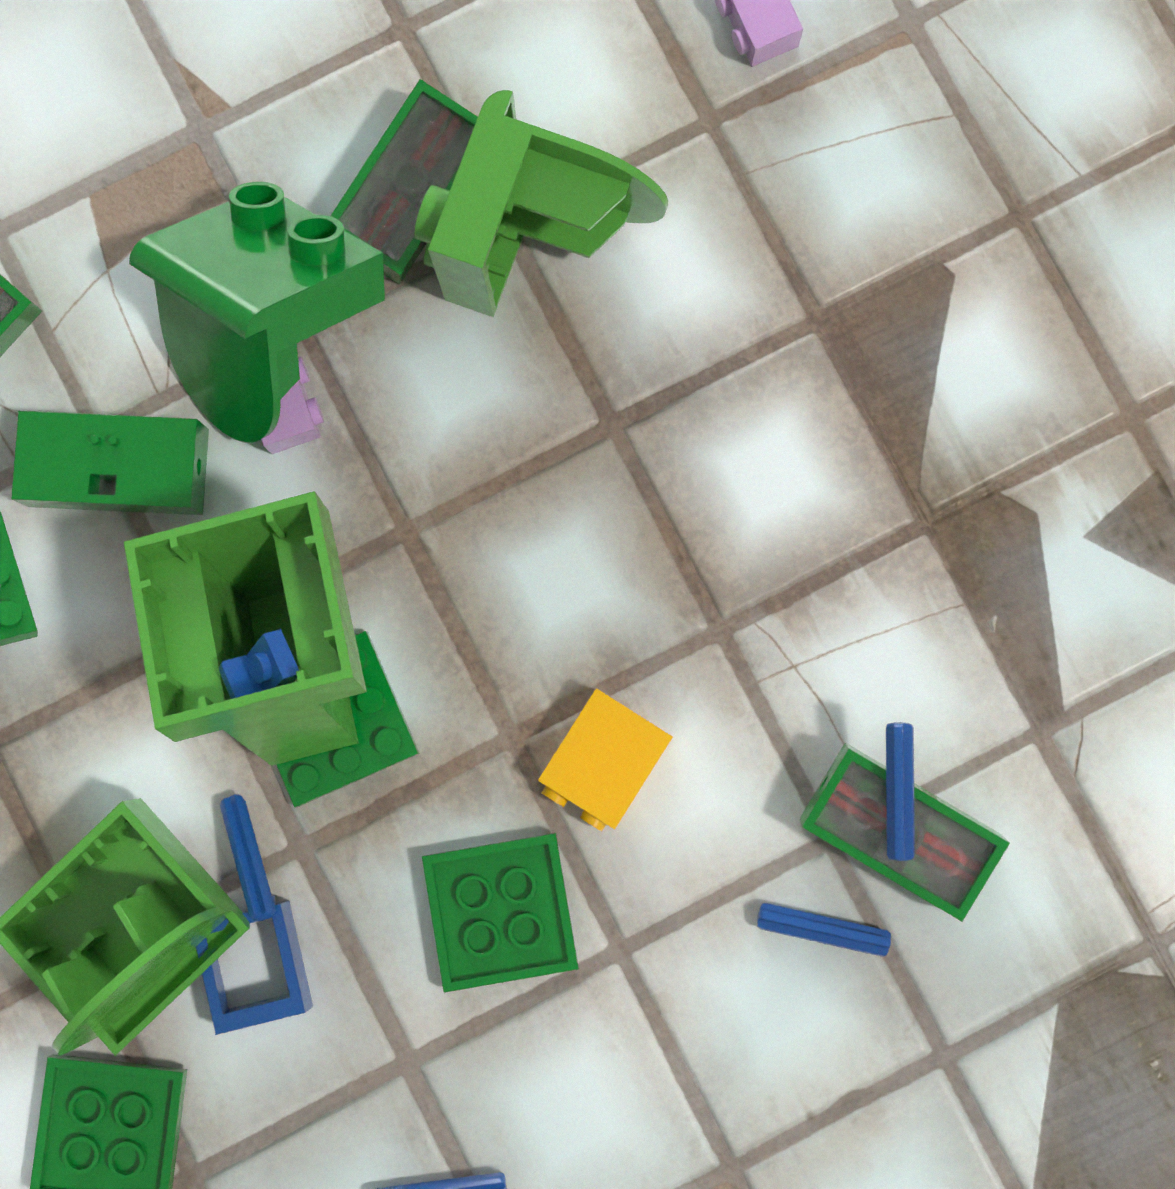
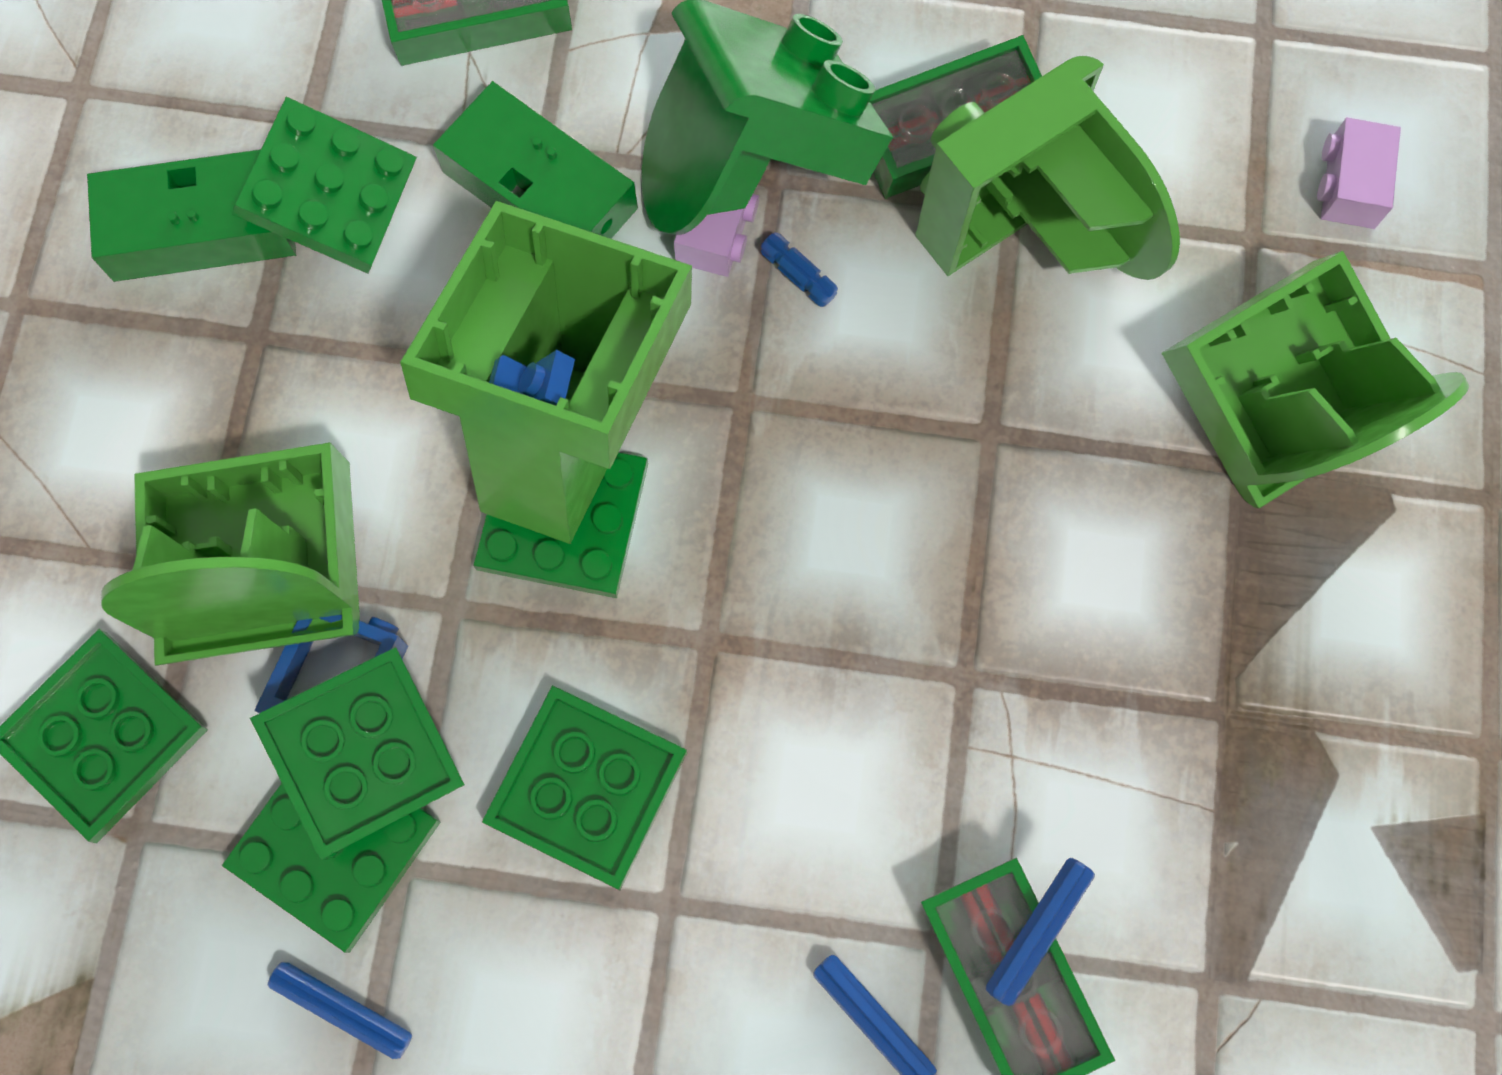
camera: 30 degrees right, 10 degrees down
(247, 858) = (399, 577): blue axle -> none
(317, 1011) = (357, 752): none -> green plate
(343, 1085) = (331, 894): none -> green plate
(374, 394) = (799, 269): none -> blue axle
(603, 761) = (777, 715): yellow brick -> none
(829, 228) = (1304, 381): none -> bright green plate

